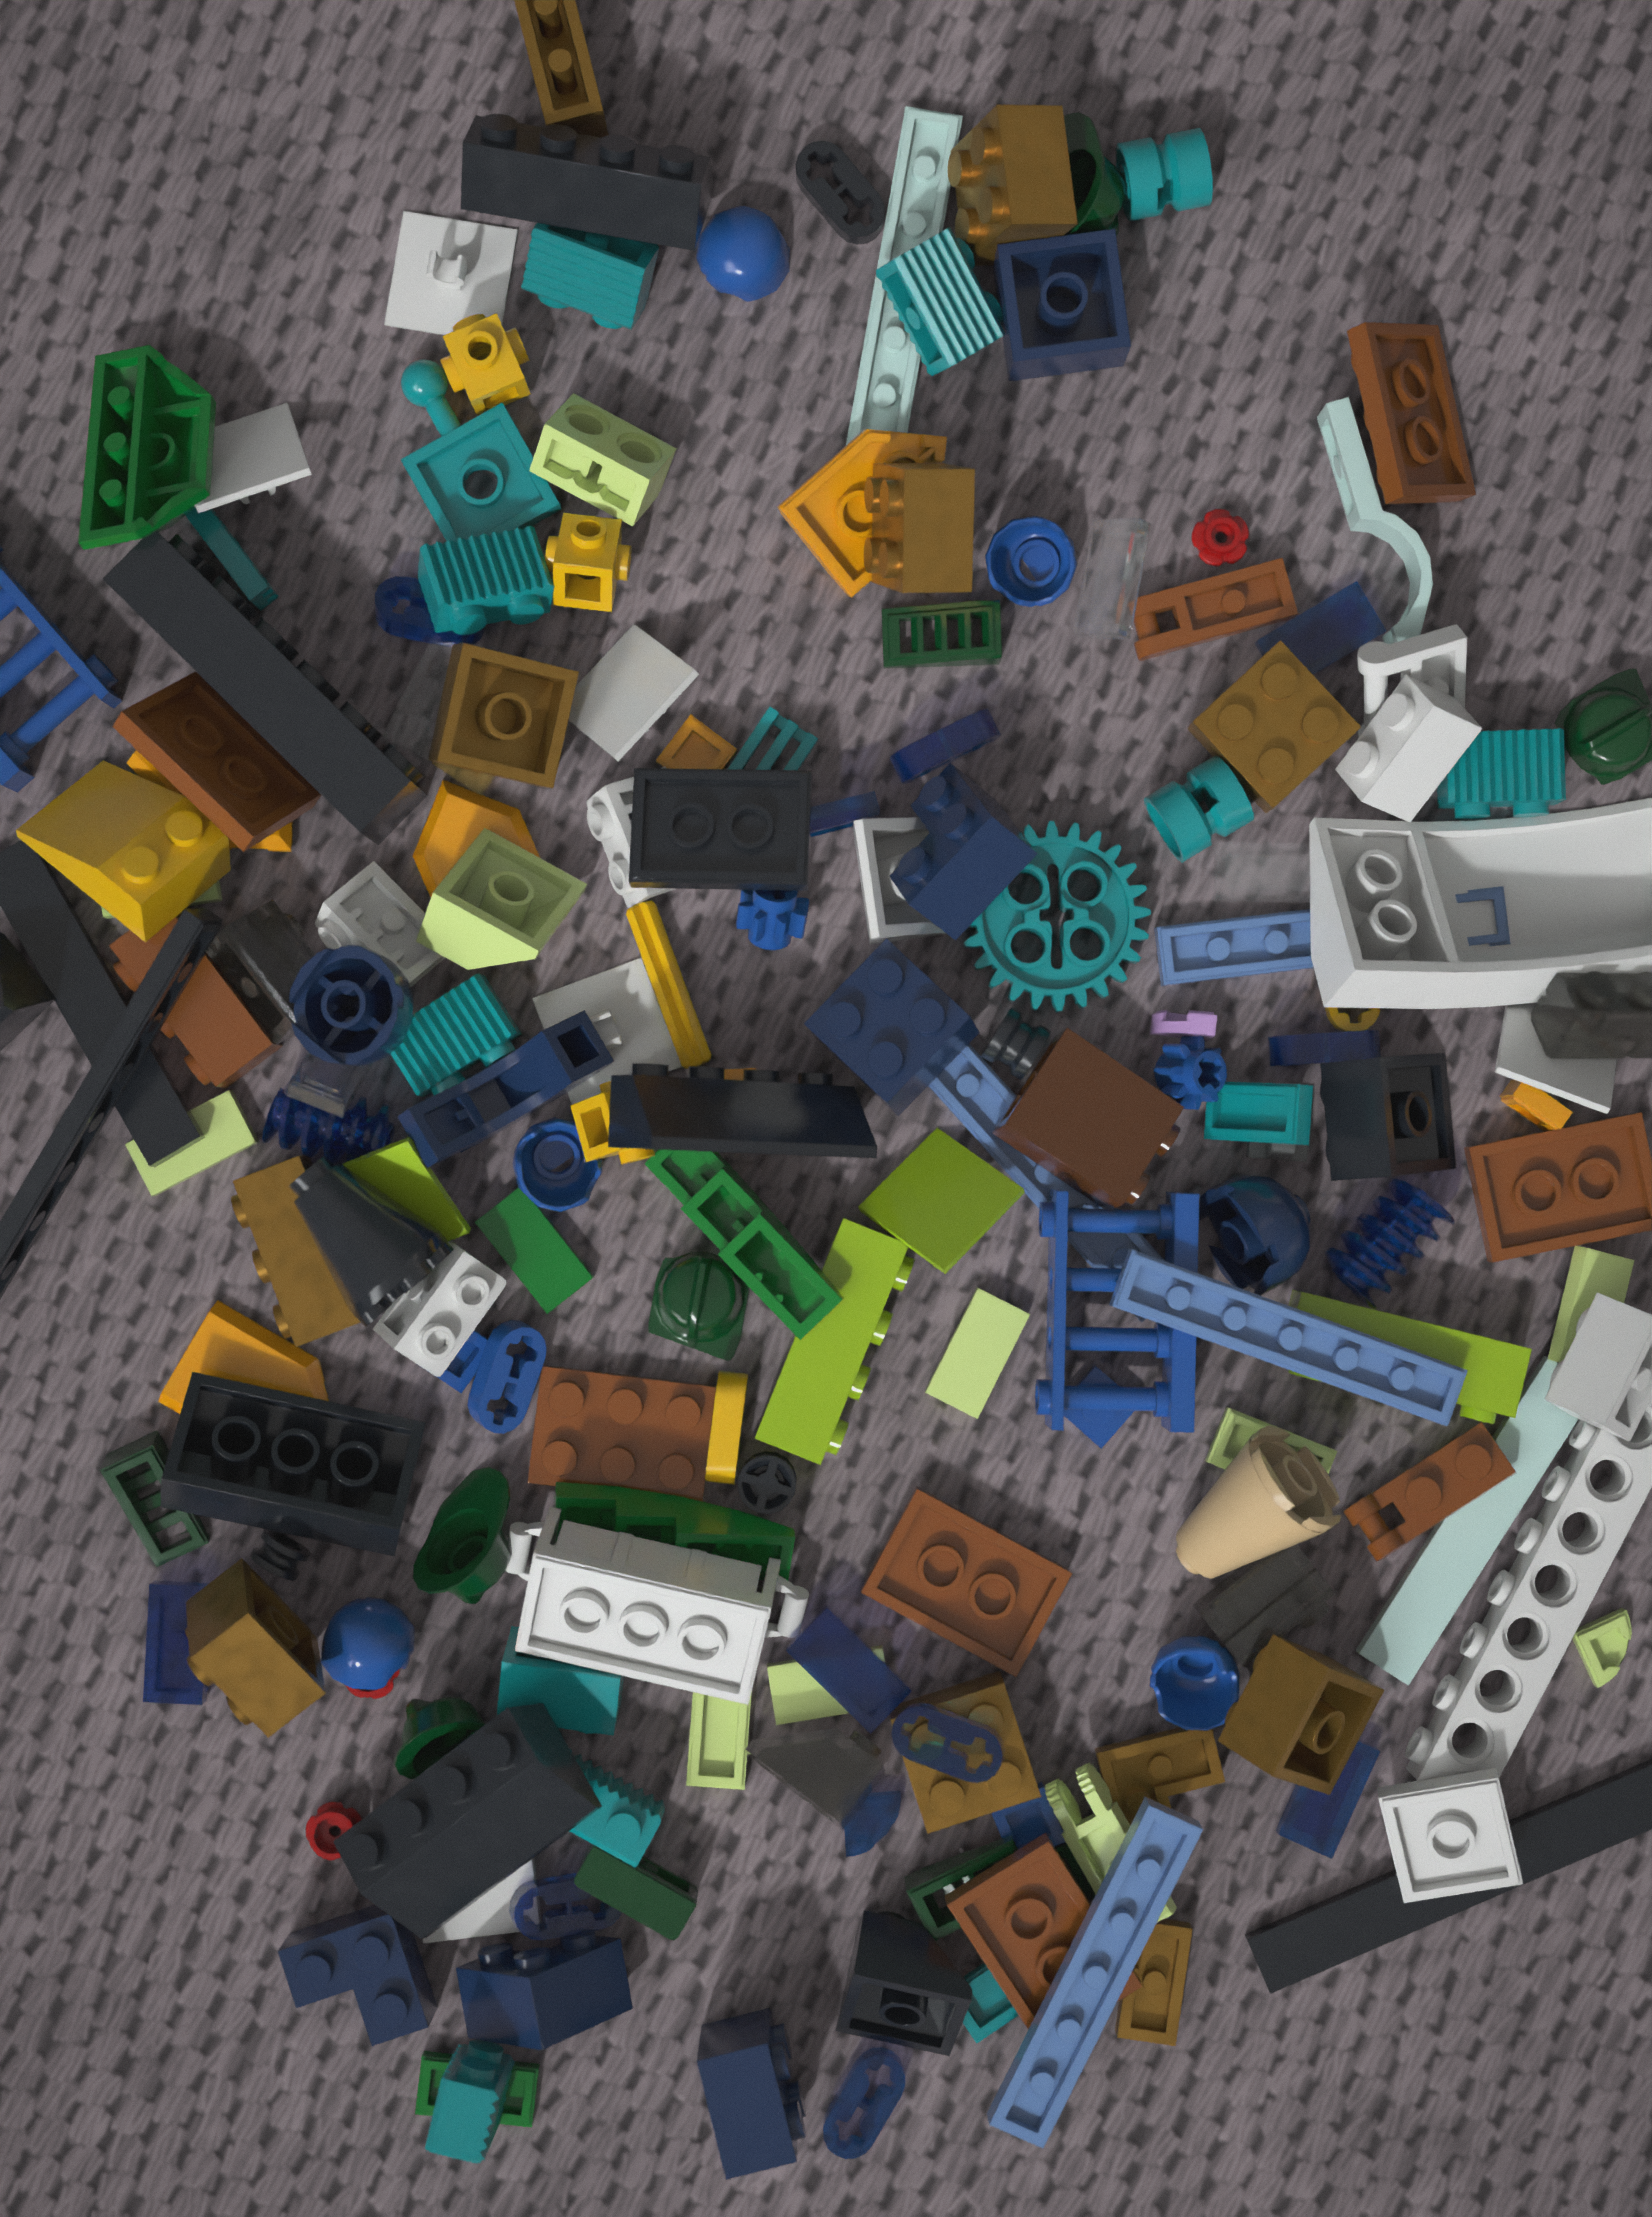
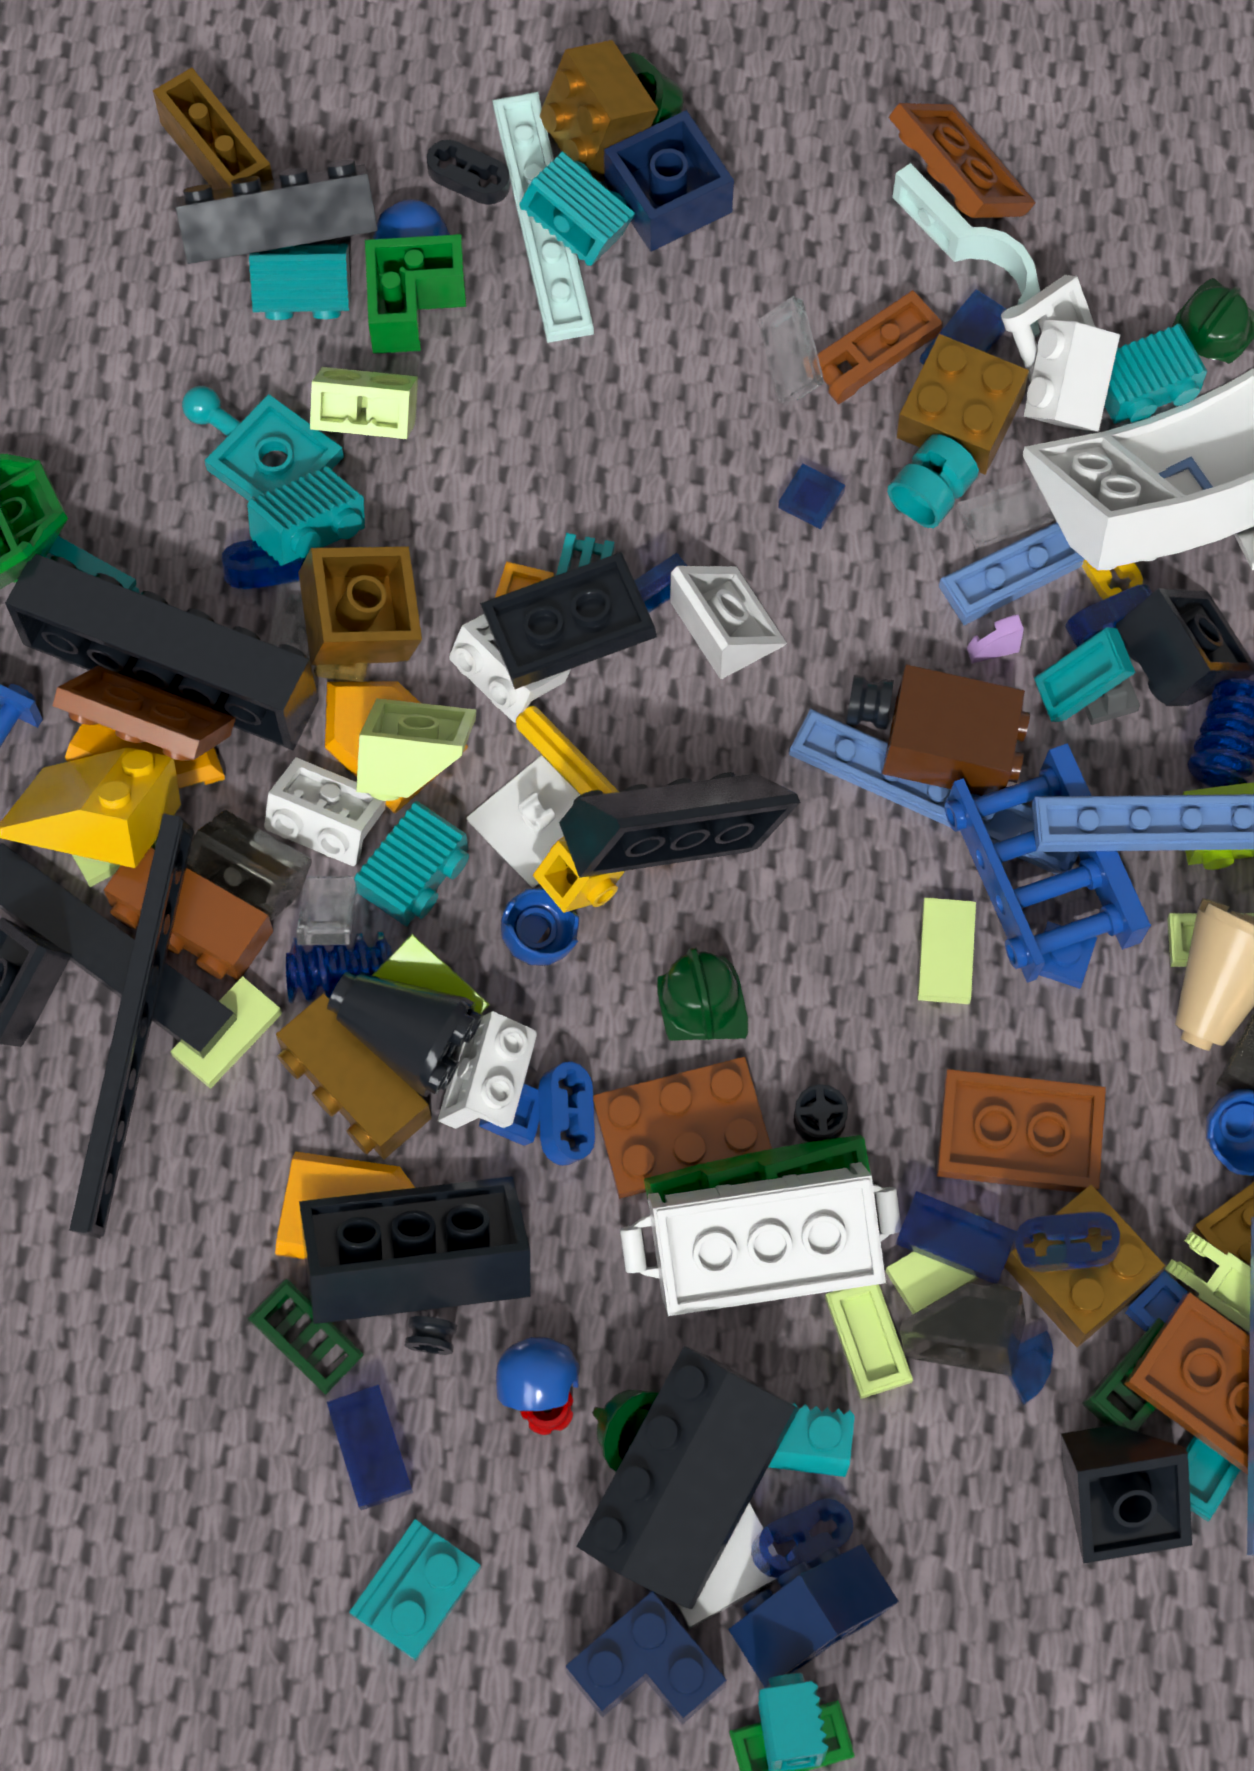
camera: 20 degrees left, 20 degrees down
(173, 1797) = (415, 1589): none -> teal plate
(253, 1649) = (442, 1404): pearl gold brick -> none
(255, 456) = (90, 495): white piece -> none
(319, 1827) = (569, 1576): red plate -> none
(351, 1006) = (325, 848): dark blue cylinder -> none
(448, 272) = (192, 331): white piece -> none
(466, 1542) = (588, 1254): dark green piece -> none
(485, 362) = (245, 369): yellow brick -> none
(507, 1090) = (482, 879): dark blue arch -> none
(534, 1250) = (547, 1008): green tile -> none
(572, 1694) = (734, 1336): teal brick -> none
(587, 550) = (382, 475): yellow brick -> none
(628, 691) = (453, 555): white piece -> none
(643, 1893) = (857, 1491): dark green slope -> none
(704, 316) = (406, 278): none -> green brick
(726, 1427) = (768, 1083): yellow beam -> none
(748, 1235) = (717, 918): green slope -> none
(749, 2094) = (1035, 1624): dark blue brick -> none
(772, 917) = (634, 676): blue gear -> none
(828, 1360) = (825, 980): lime brick -> none
(831, 508) = (581, 366): light orange tile -> none
(876, 2109) = (1151, 1615): clear blue beam -> none
(892, 1027) = (767, 719): dark blue brick -> none
(920, 527) = (631, 352): pearl gold brick -> none
(941, 1200) = (864, 834): lime piece -> none
(945, 746) = (716, 510): clear blue beam -> none
(966, 855) = (766, 566): dark blue brick -> none
(988, 654) = (686, 451): dark green slope -> none
(1046, 553) = (730, 350): blue hair -> none
(1060, 766) = (811, 496): none -> clear blue tile
(1108, 916) = (896, 585): teal gear -> none
(1165, 173) = (709, 72): teal wheel -> none
(1190, 1072) = (1018, 667): blue gear -> none
(1209, 548) = (856, 307): red plate -> none
(1265, 1238) = (1125, 757): dark blue cylinder -> none

